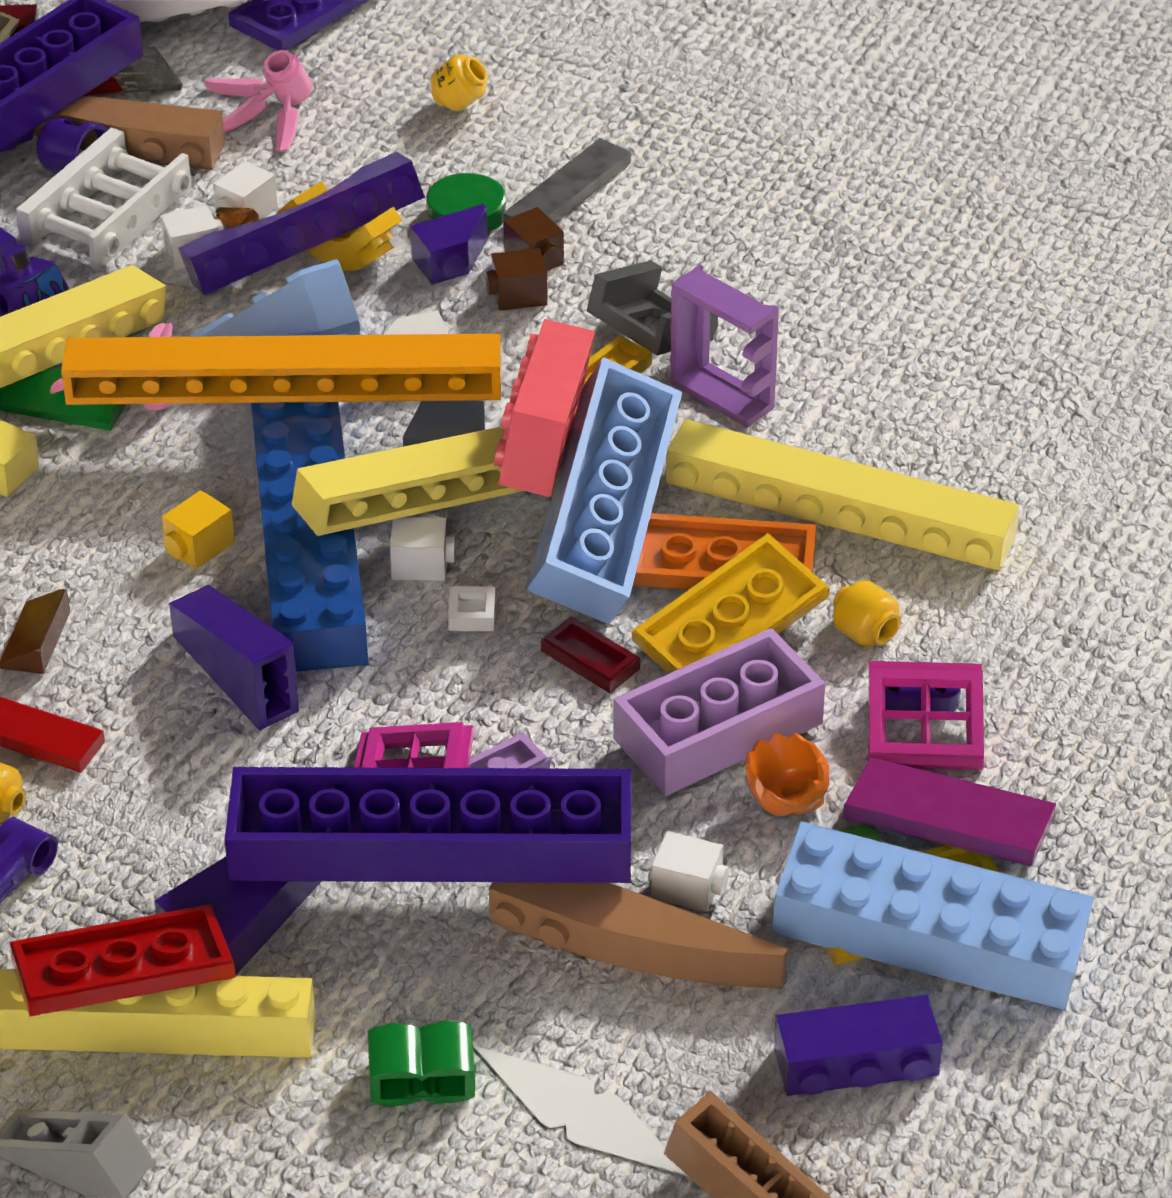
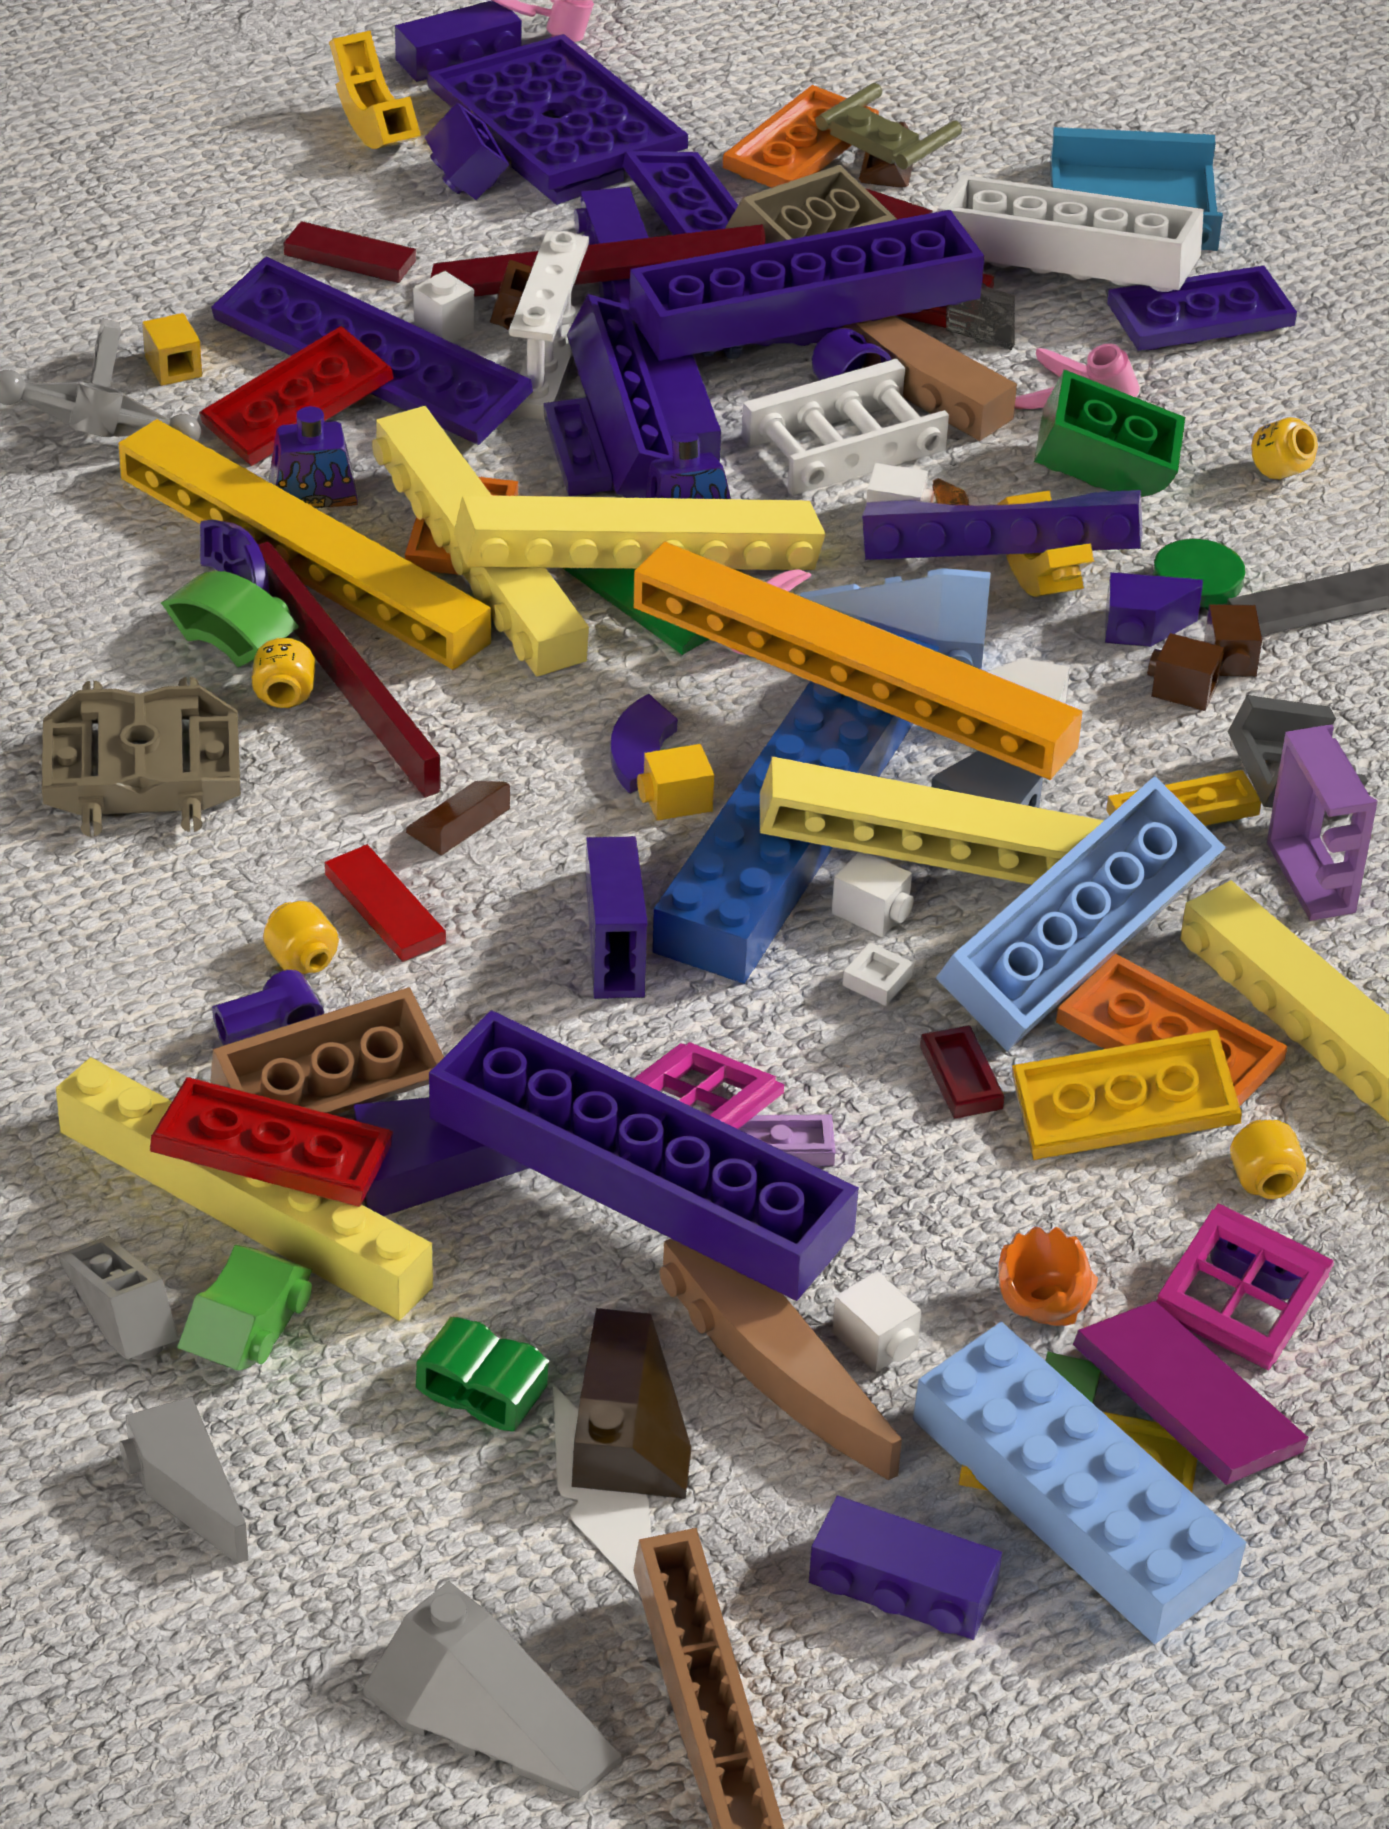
camera: 30 degrees right, 0 degrees up
(111, 869) = (336, 1056): none -> medium nougat slope
(134, 512) = (638, 731): none -> dark purple tile
(191, 1108) = (246, 1308): none -> bright green brick
(247, 188) = (983, 473): white brick -> none
(323, 125) = (1108, 437): none -> green brick
(543, 407) = (1063, 800): coral brick -> none
(553, 1039) = (628, 1412): none -> dark brown wedge
(717, 710) = (1010, 1175): lavender brick -> none

